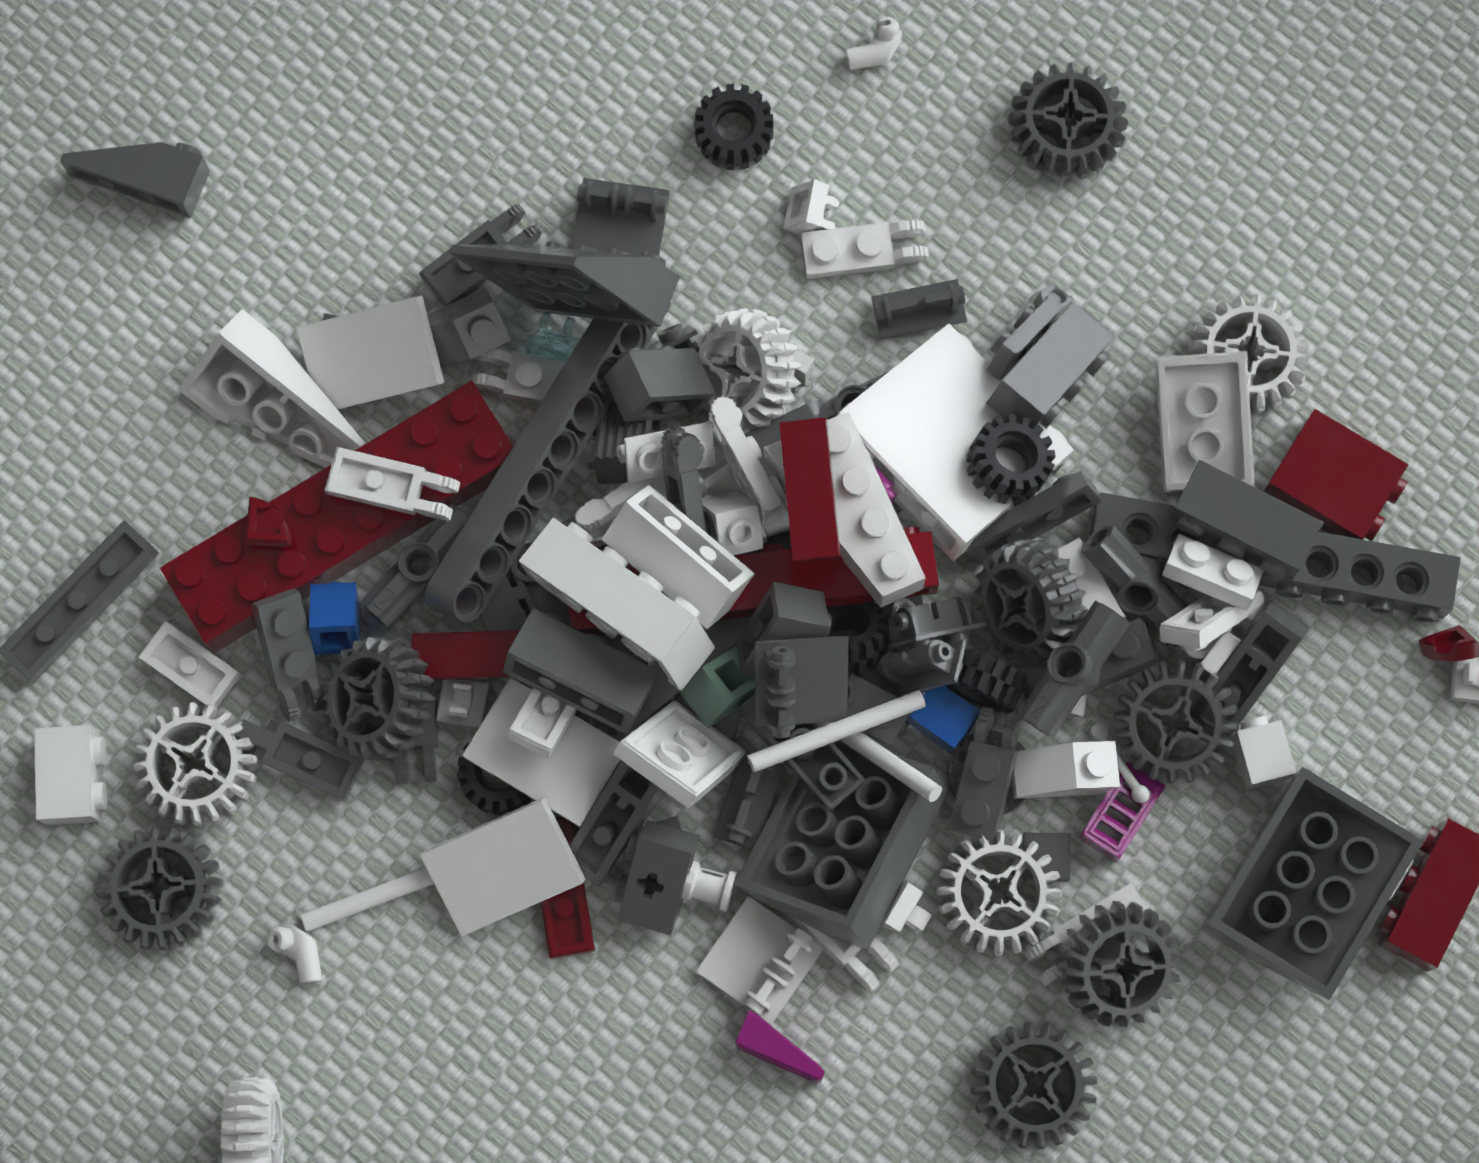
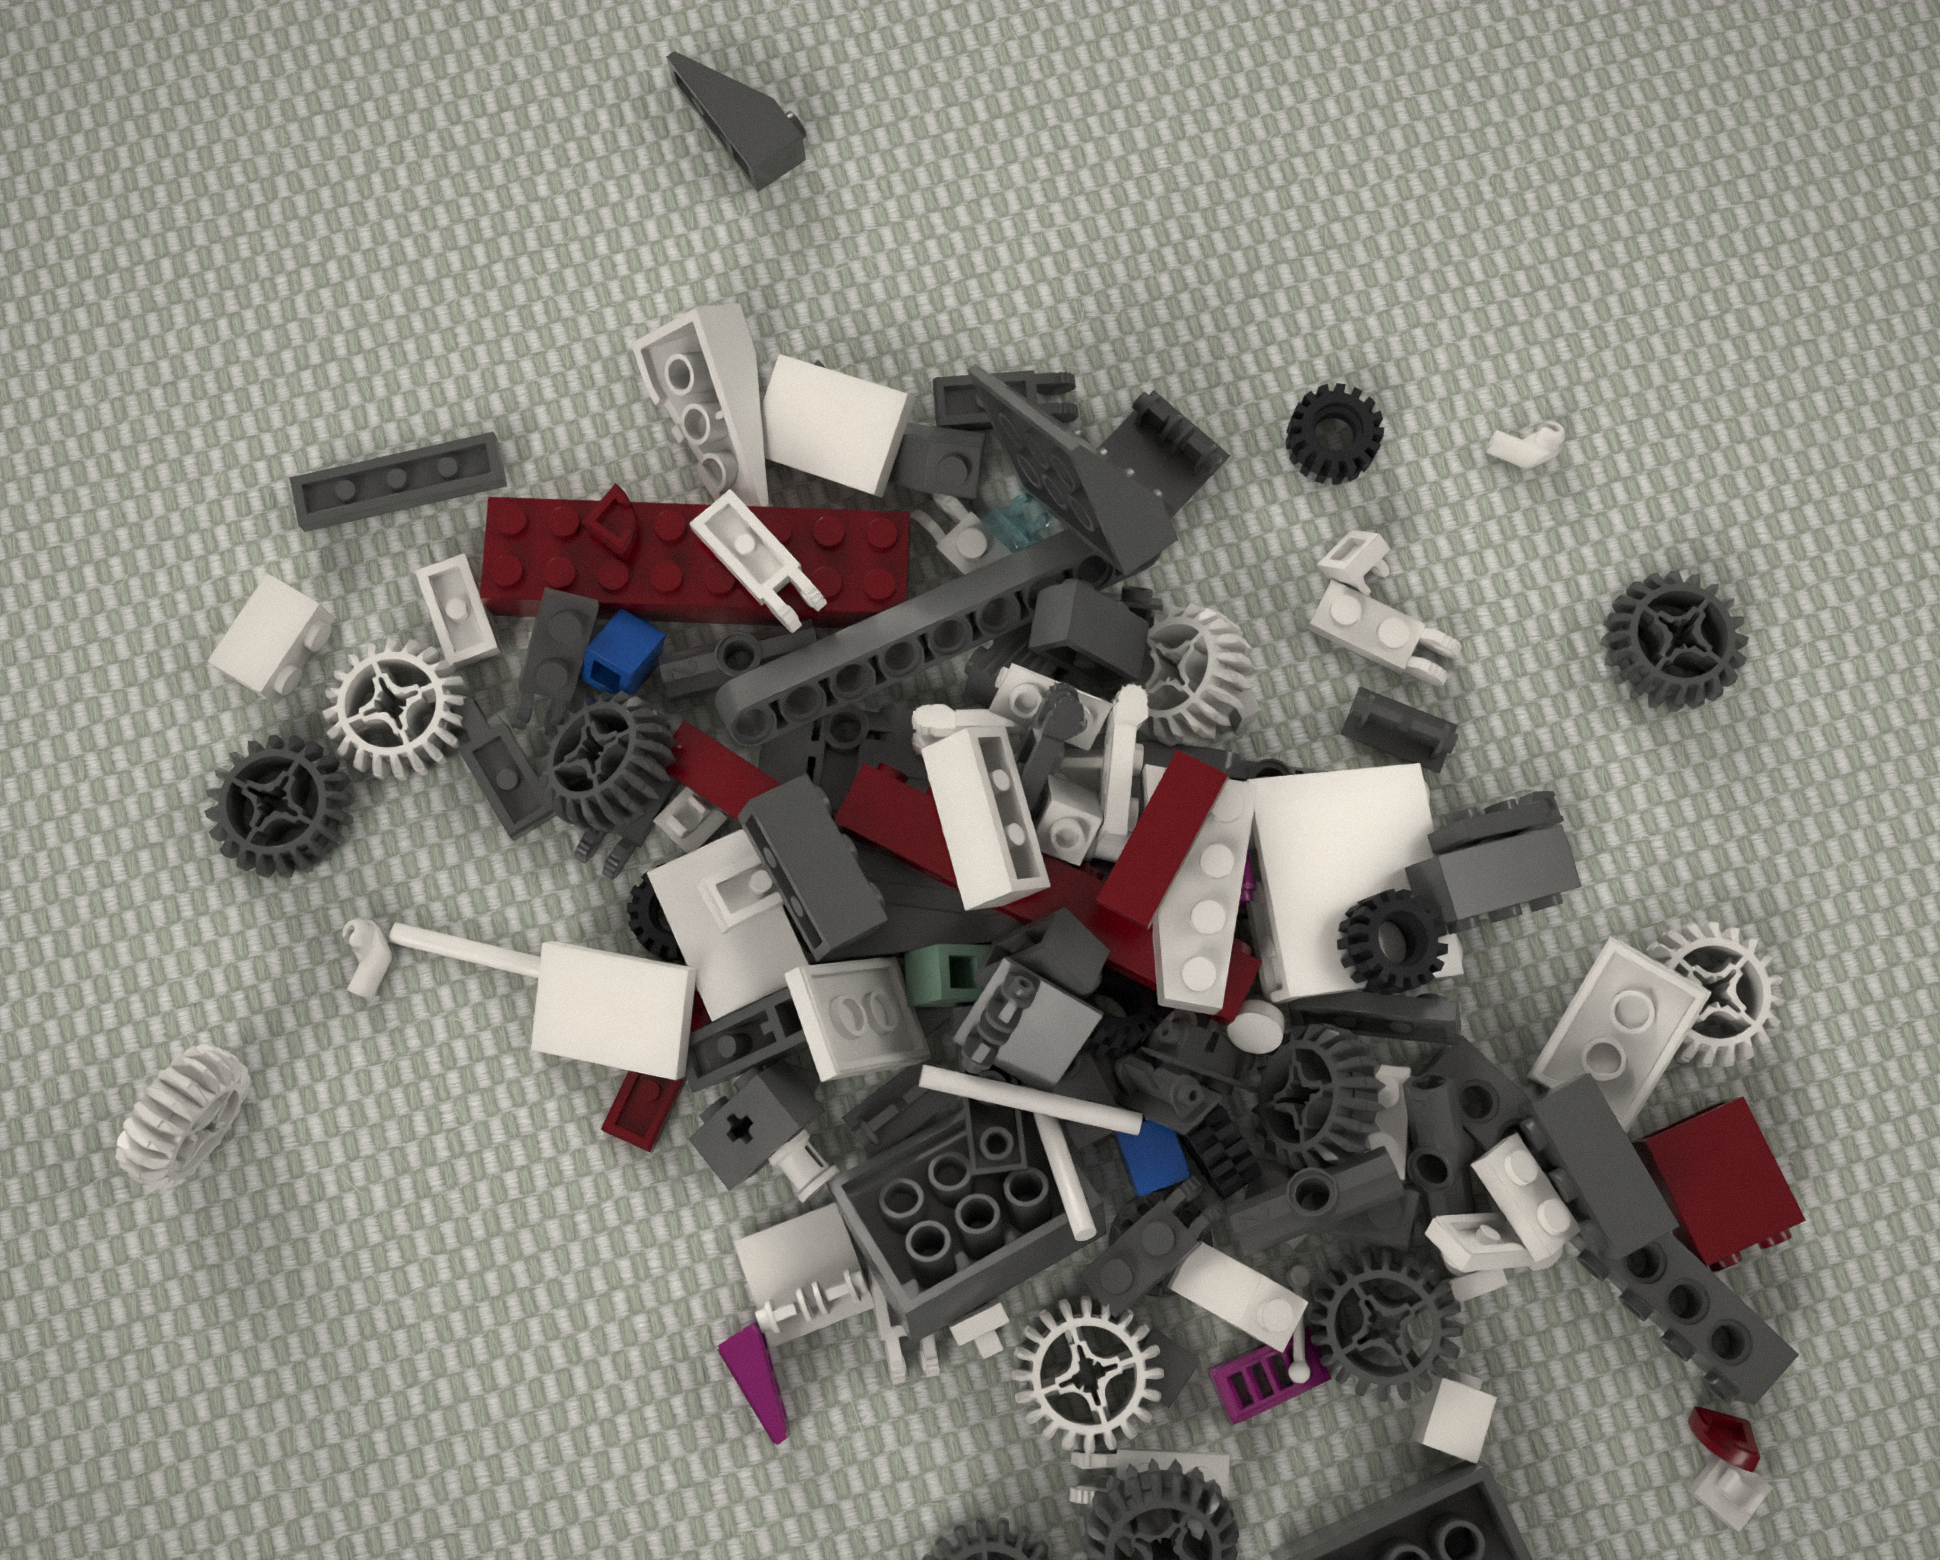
camera: 30 degrees right, 0 degrees up
(619, 600) = (895, 823): white wedge -> none
(958, 579) = (1257, 1027): none -> white tile
(1254, 663) = (1510, 1317): dark grey slope -> none

